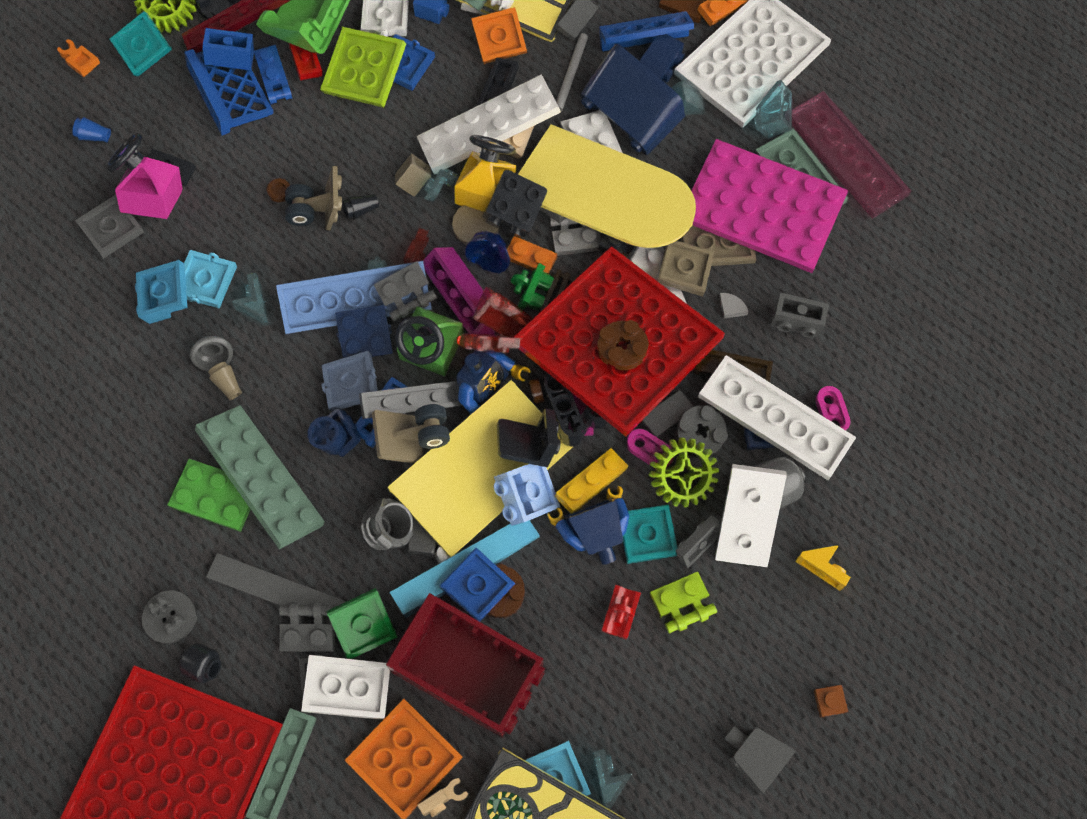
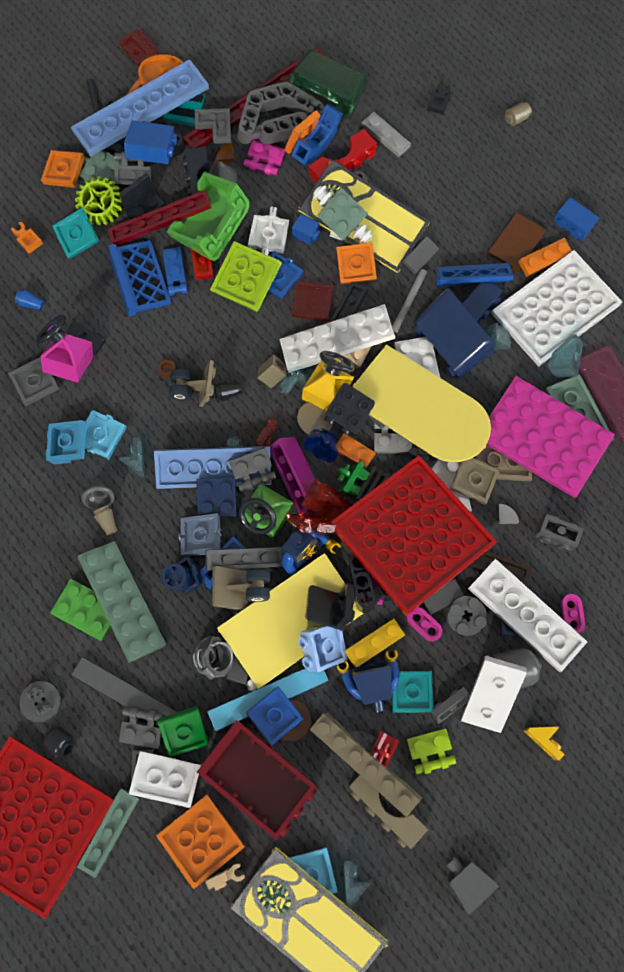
camera: 10 degrees right, 5 degrees up
(228, 49) = (142, 248): blue brick -> none
(450, 87) = (312, 301): none -> clear red plate
(536, 391) = (343, 567): reddish brown tile -> none
(603, 626) = (375, 773): none -> dark tan arch
(627, 332) = (409, 550): reddish brown plate -> none
(667, 700) = (408, 829): none -> dark tan arch
(682, 462) = (462, 652): lime gear -> none
(830, 701) = (532, 847): dark orange plate -> none

